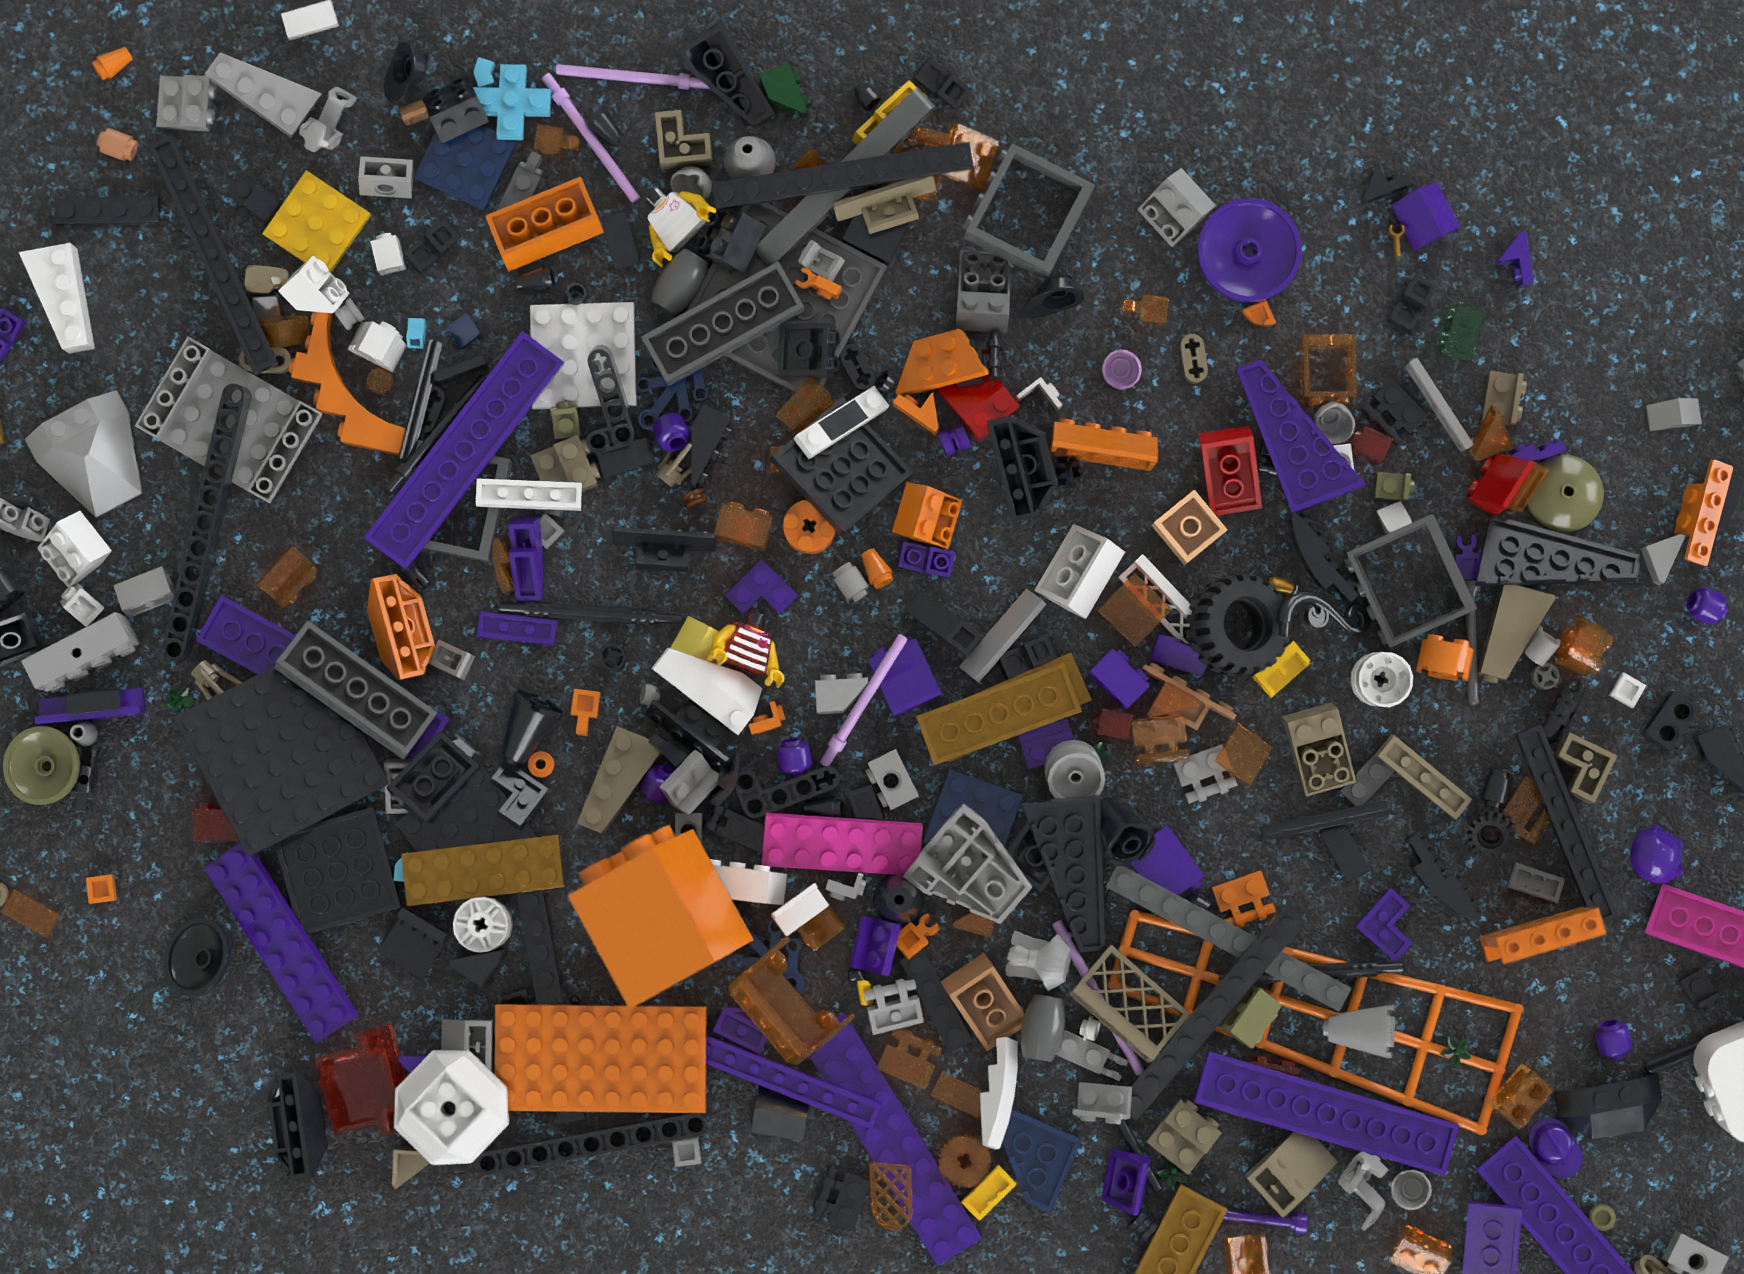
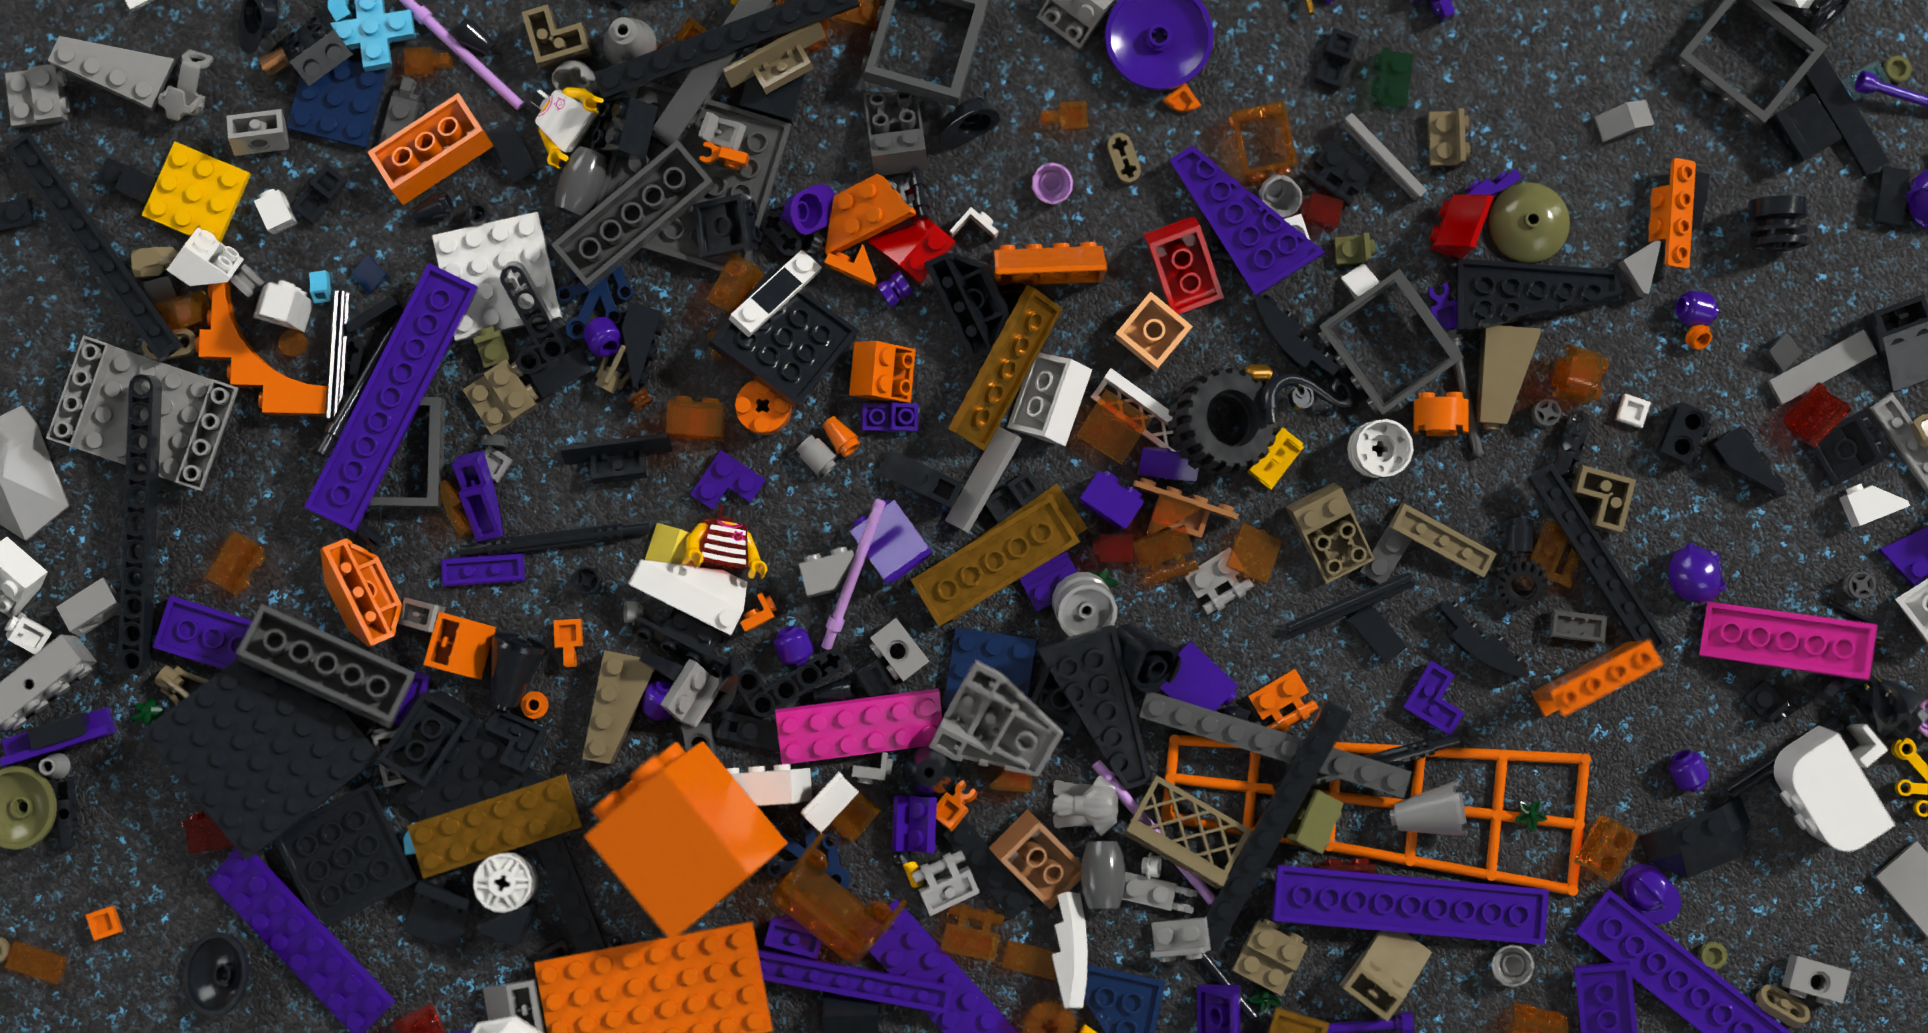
camera: 15 degrees left, 0 degrees up
(482, 695) = (459, 645): none -> orange slope
(528, 494) = (467, 429): white plate -> none
(888, 349) = (809, 209): none -> dark purple piece
(1044, 534) = (1005, 368): none -> pearl gold plate
(1355, 1179) = (1453, 968): light grey piece -> none
(1491, 436) = (1443, 178): clear orange slope -> none
(1528, 487) = (1491, 223): clear orange tile -> none
(1541, 646) = (1537, 383): light grey piece -> none
(1703, 632) = (1698, 337): none -> orange plate

